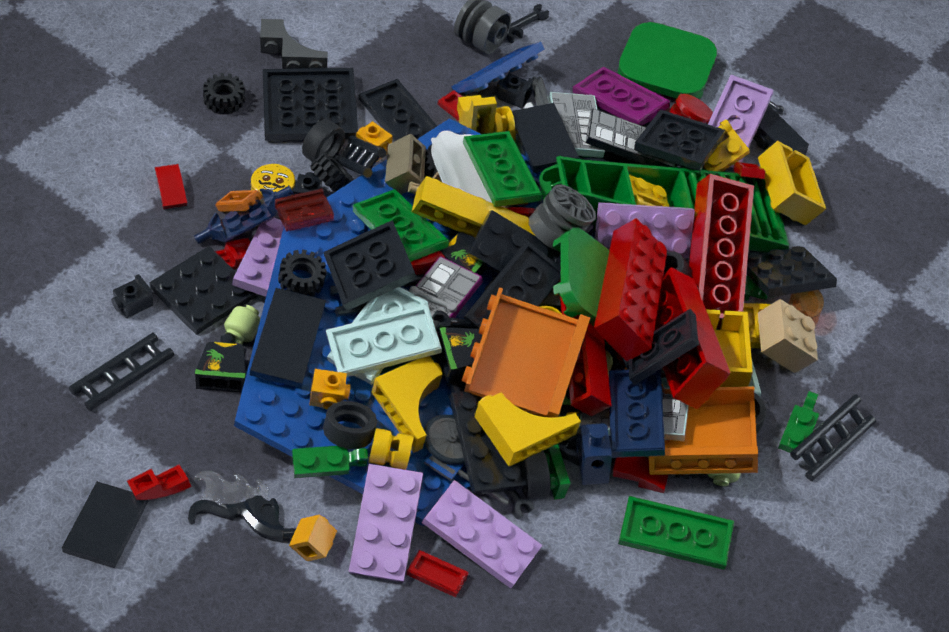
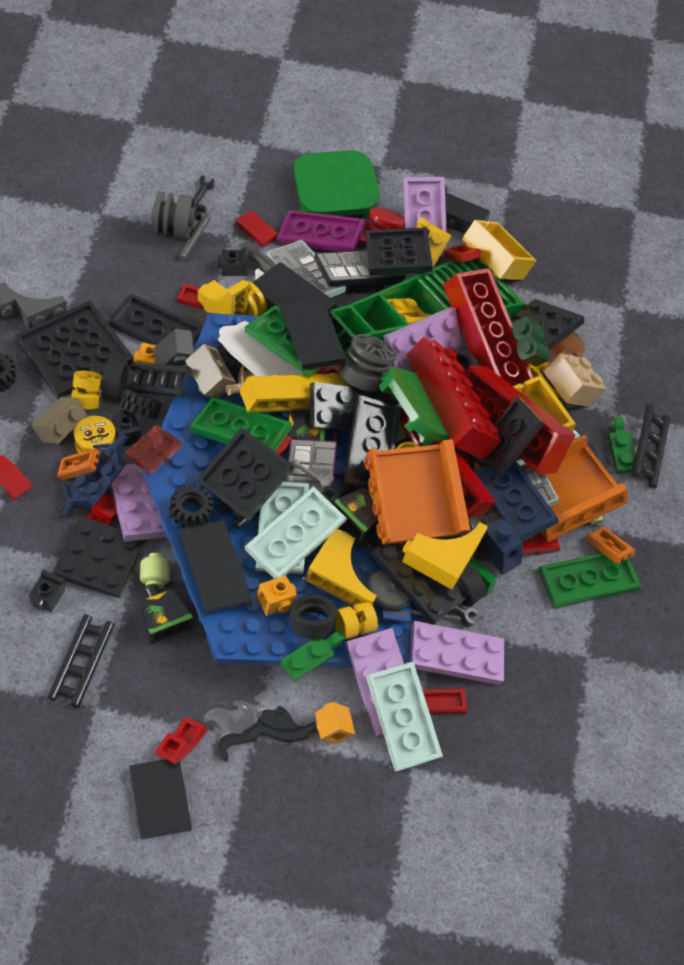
camera: 30 degrees left, 5 degrees up
(248, 156) = (59, 420): none -> dark tan brick
(290, 143) = (87, 387): none -> yellow wheel
(384, 564) = (404, 716): none -> light aqua tile
(392, 130) = (174, 348): none -> dark grey brick
(428, 279) = (324, 482): none -> light grey hinge
(494, 55) = (194, 237): none -> dark grey bar
(497, 69) = (210, 249): blue plate -> none
(522, 168) = (312, 333): none -> black tile
(560, 71) = (256, 229): none -> red tile
(714, 512) = (607, 546): none -> orange tile
(758, 275) = (530, 340): none -> dark green brick

